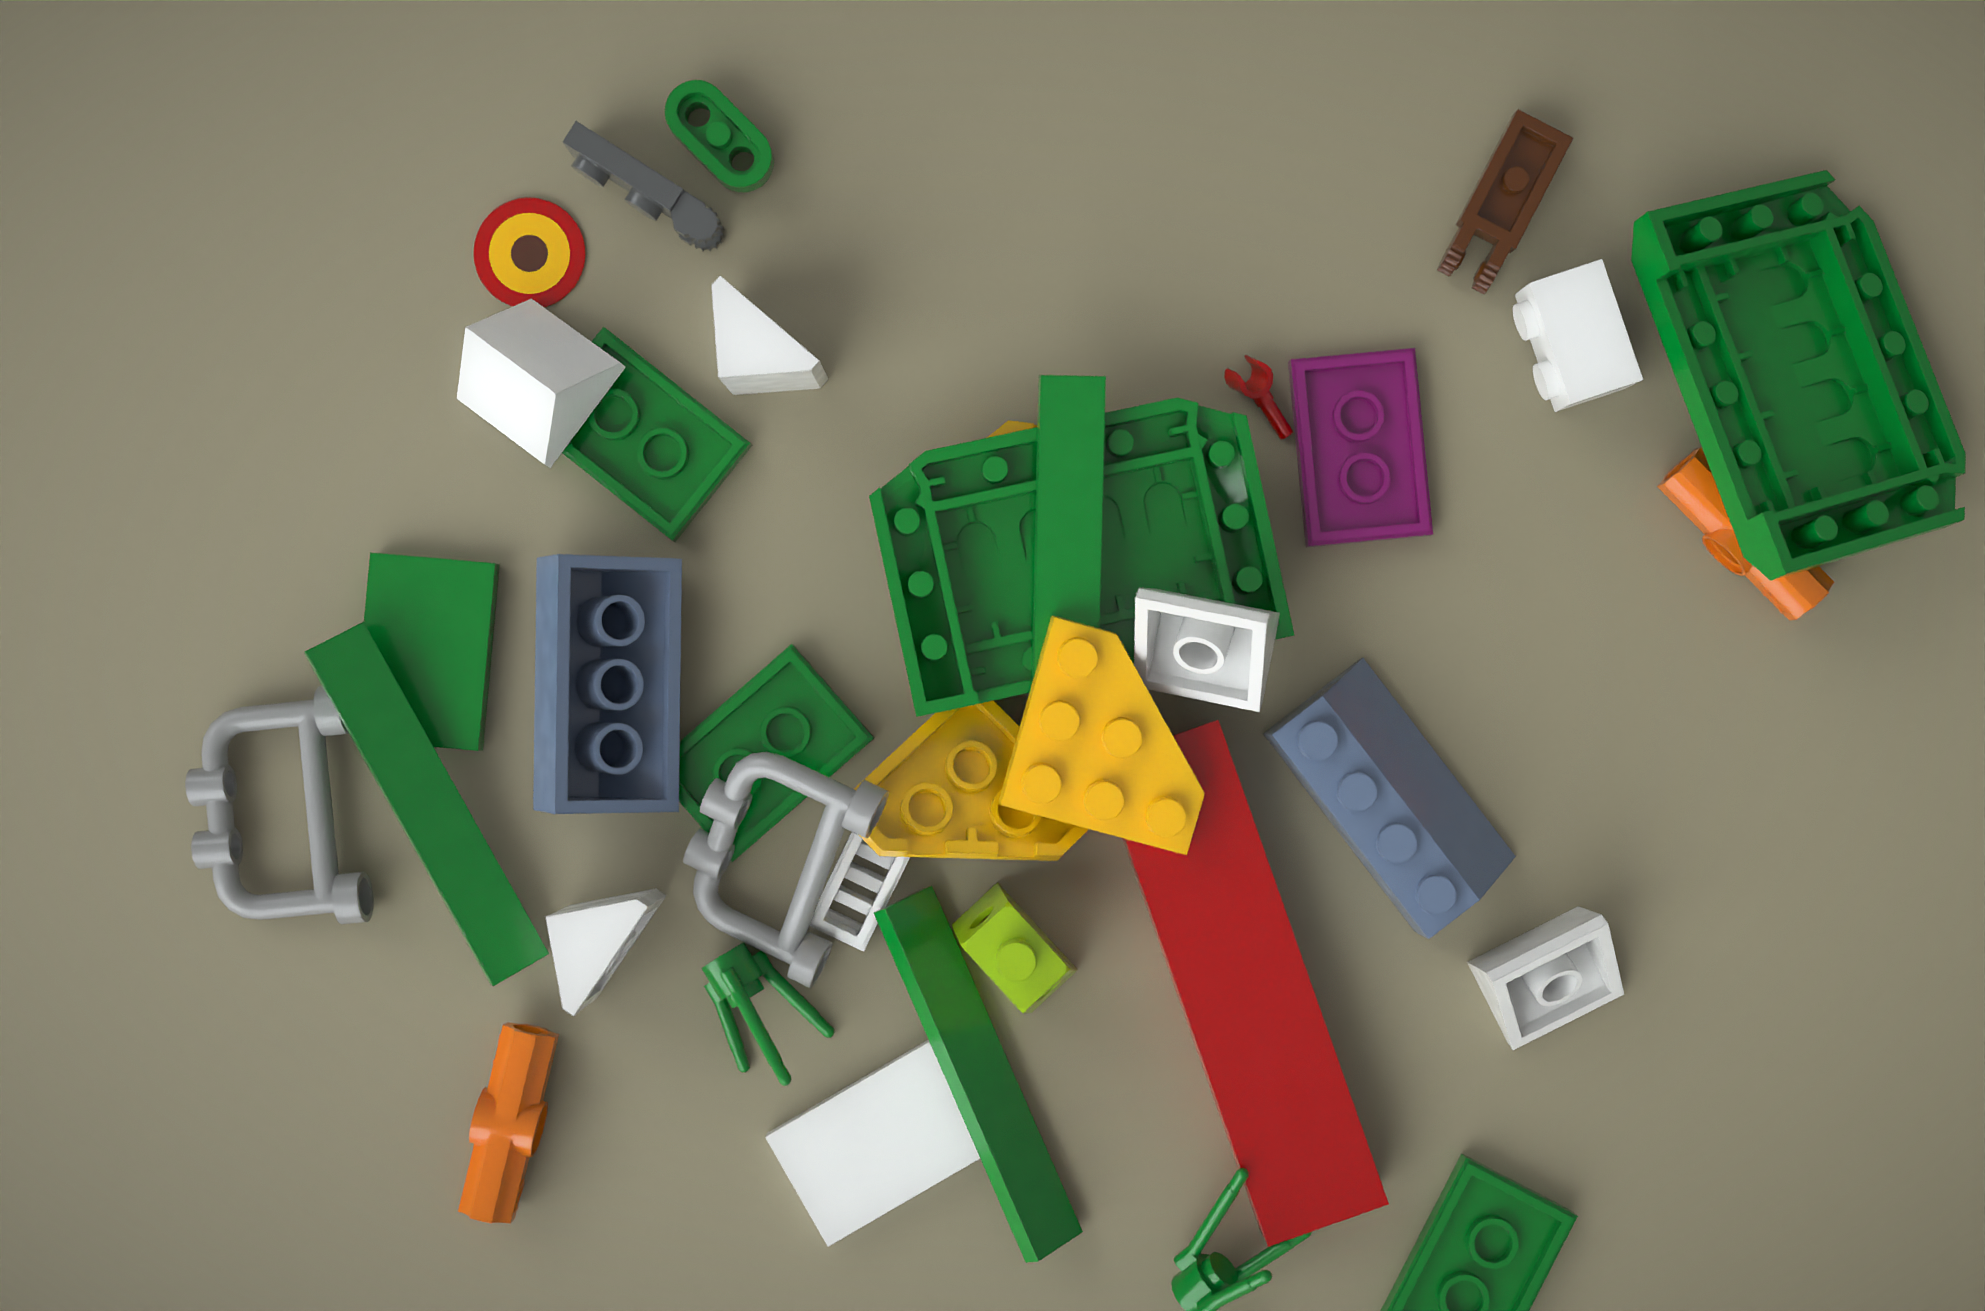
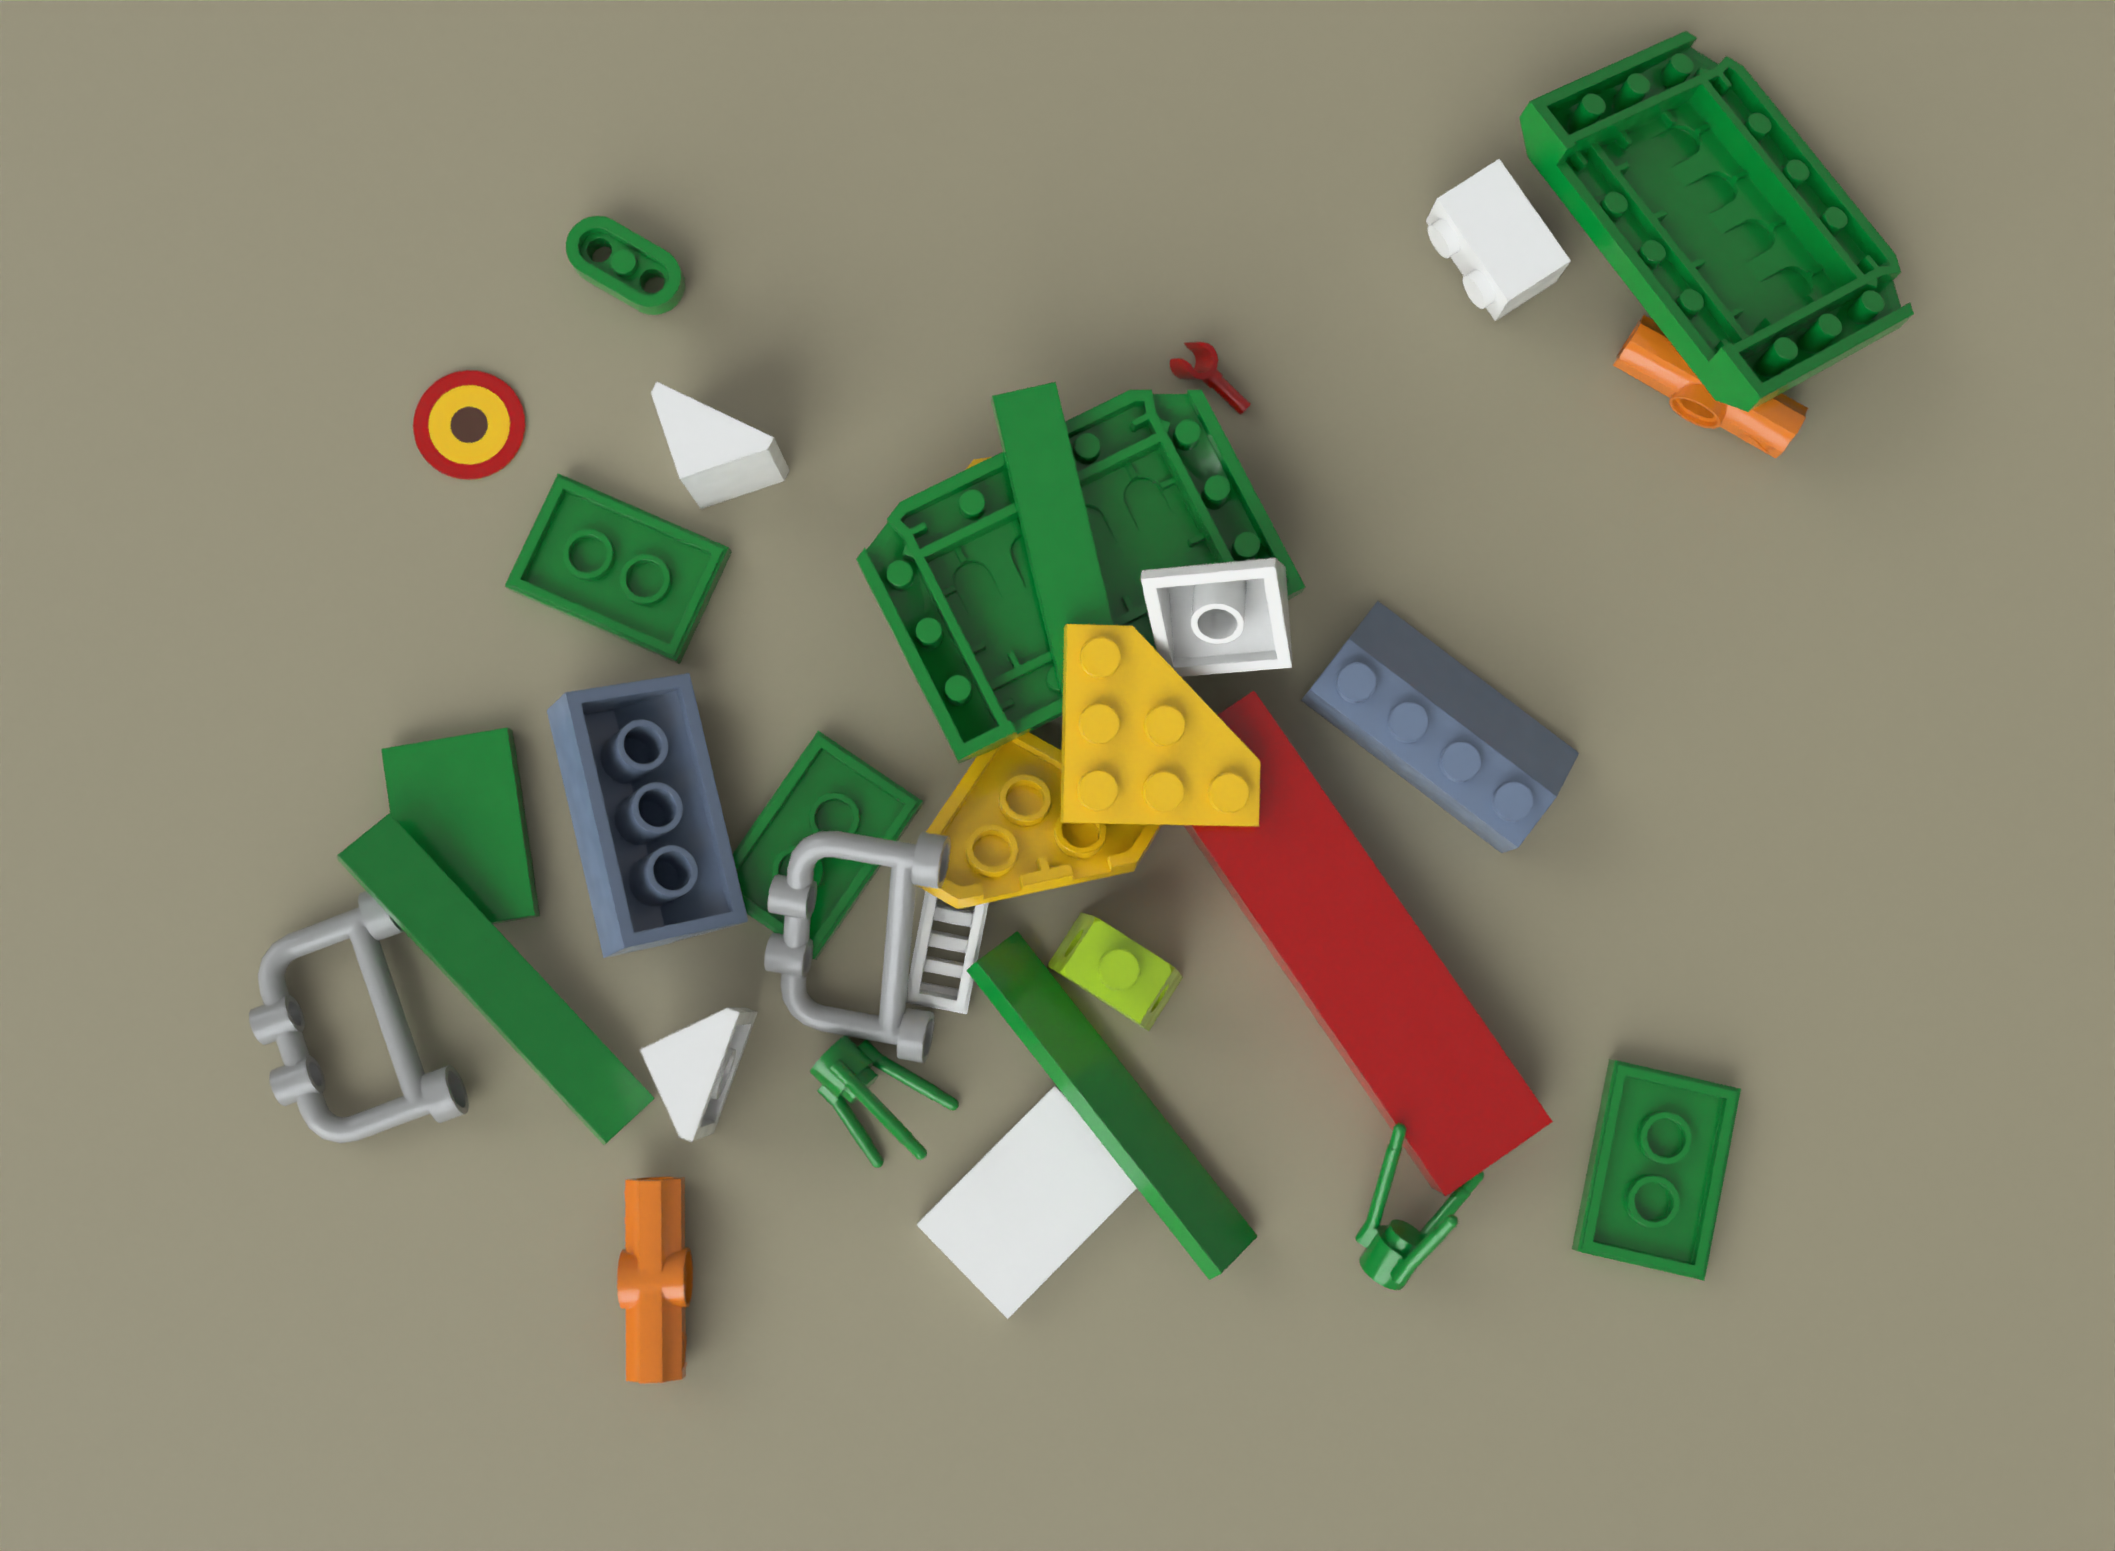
camera: 15 degrees left, 5 degrees down
(533, 377) = (500, 538): white slope -> none
(647, 189) = (567, 330): dark grey hinge -> none
(1360, 447) = (1319, 402): magenta tile -> none
(1507, 194) = (1392, 129): reddish brown hinge -> none
(1549, 975) = (1646, 859): white slope -> none

